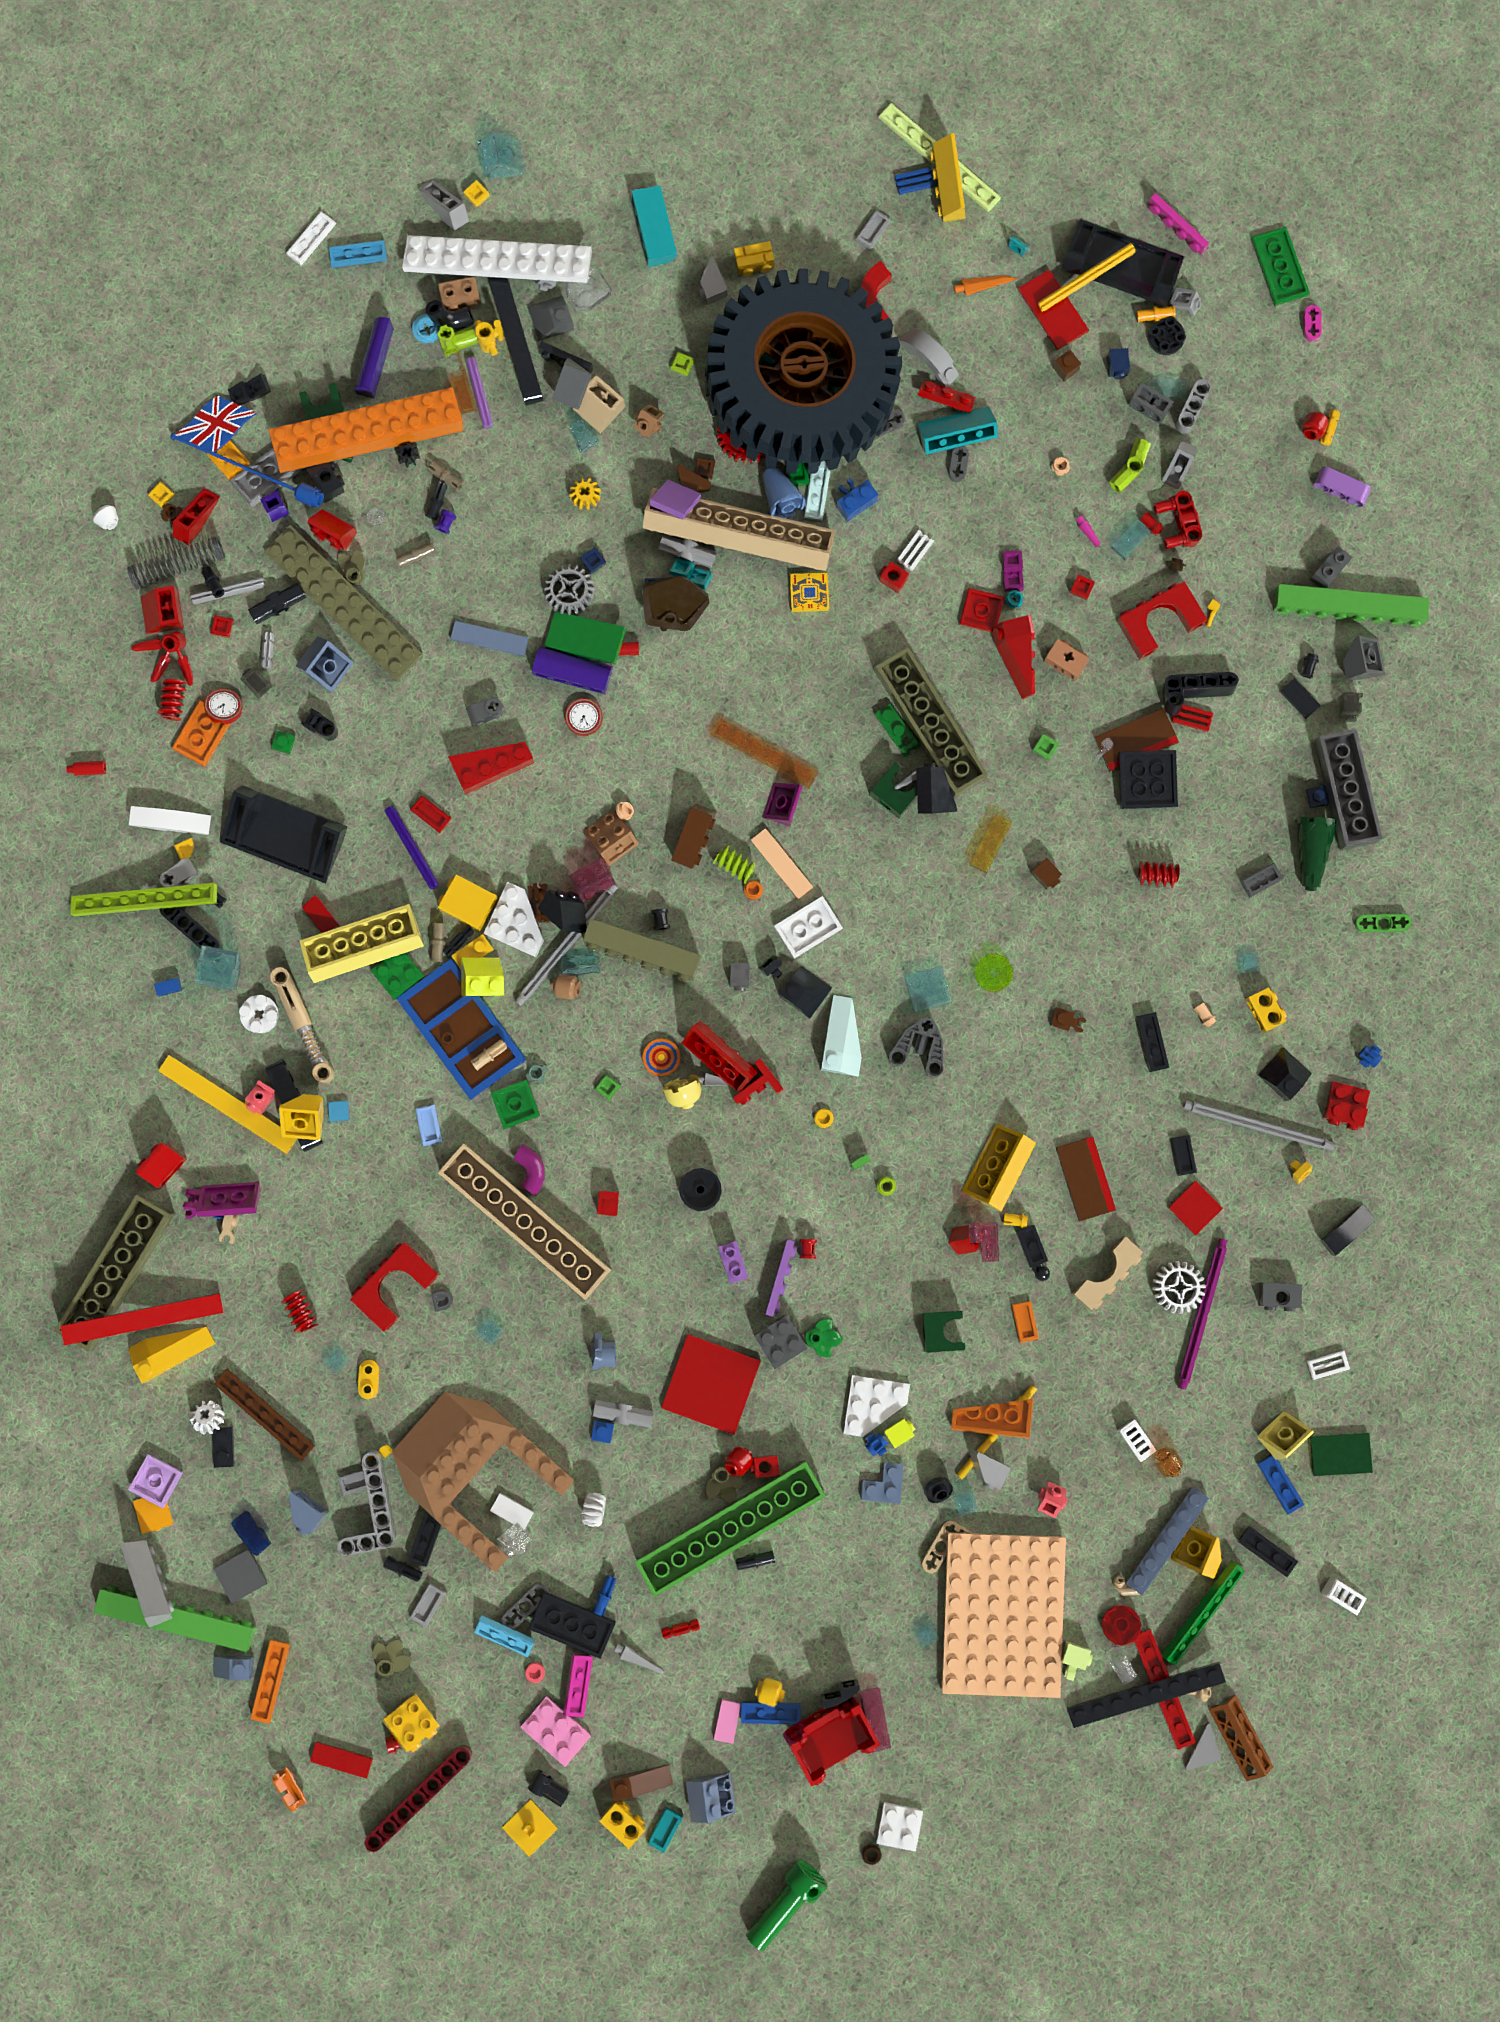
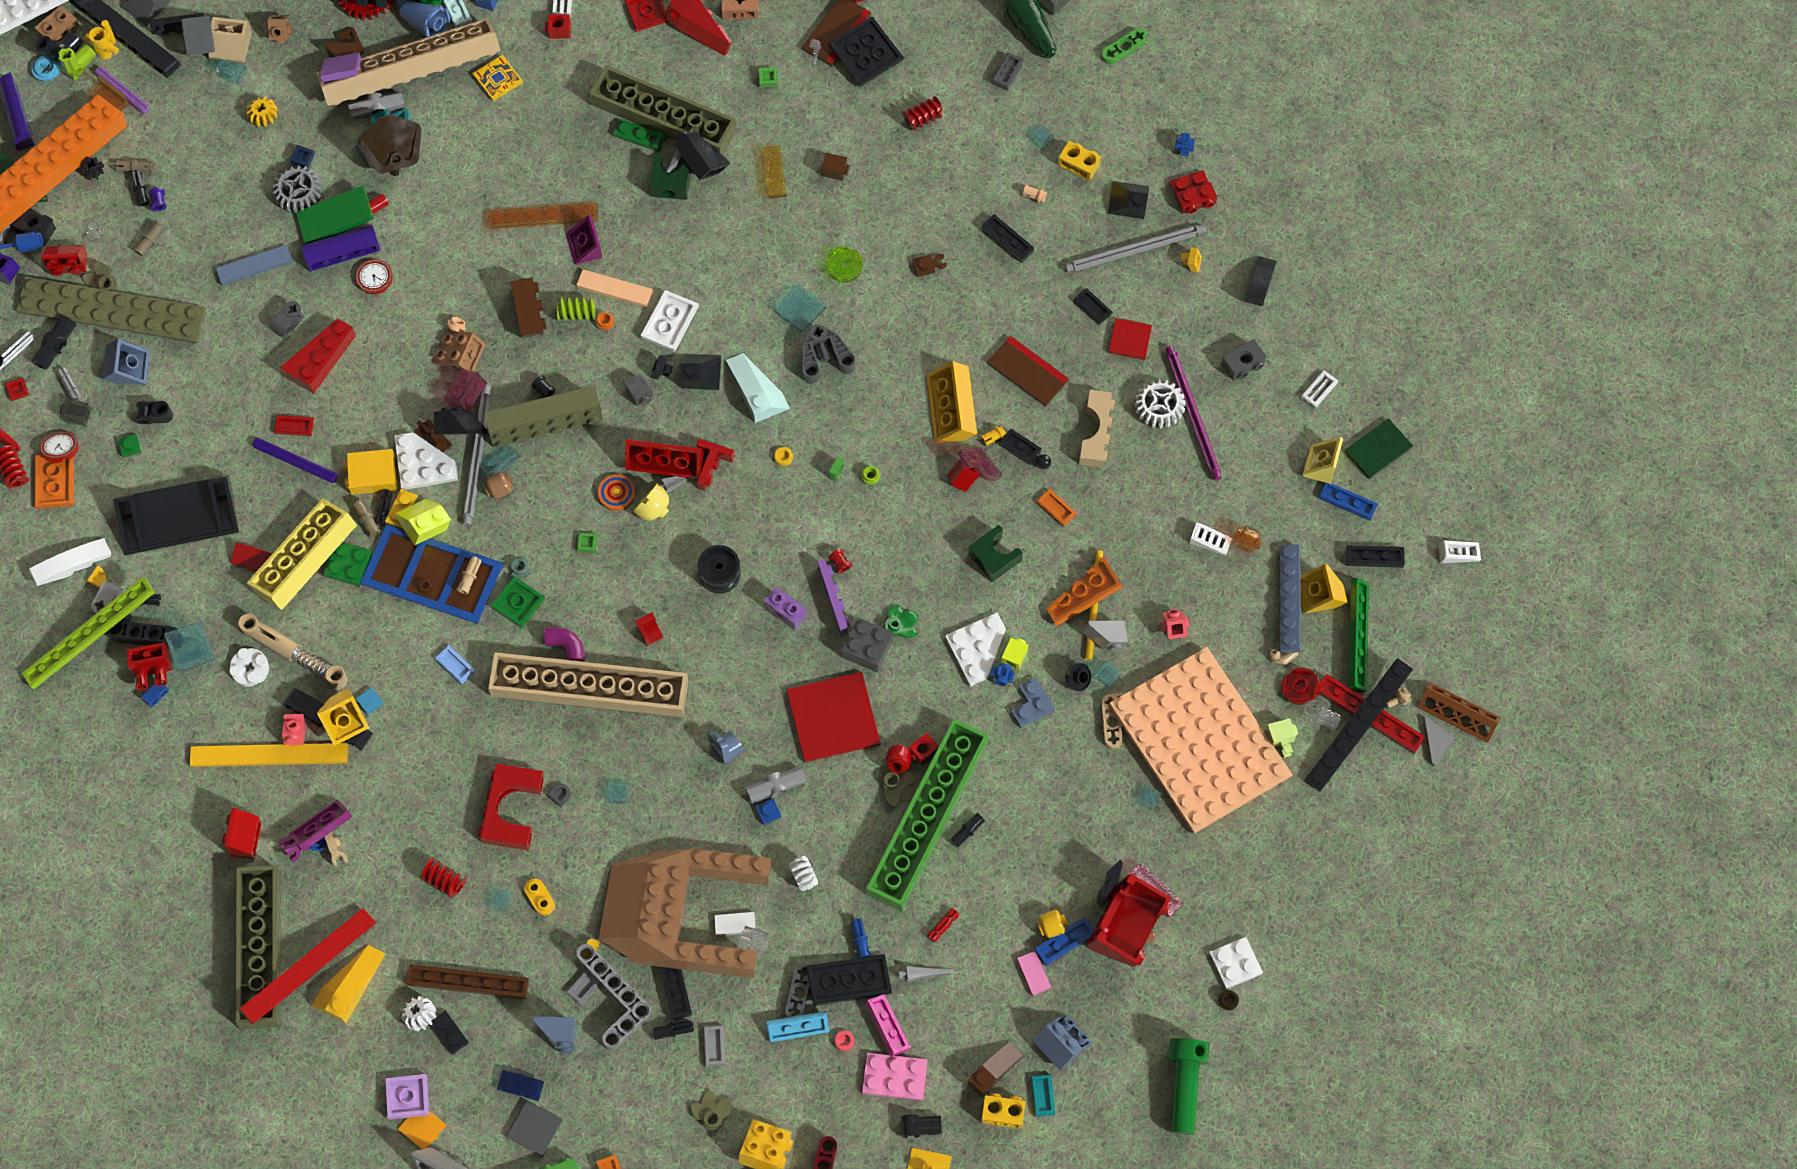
camera: 30 degrees left, 15 degrees down
(176, 955) = (150, 660): none -> red brick

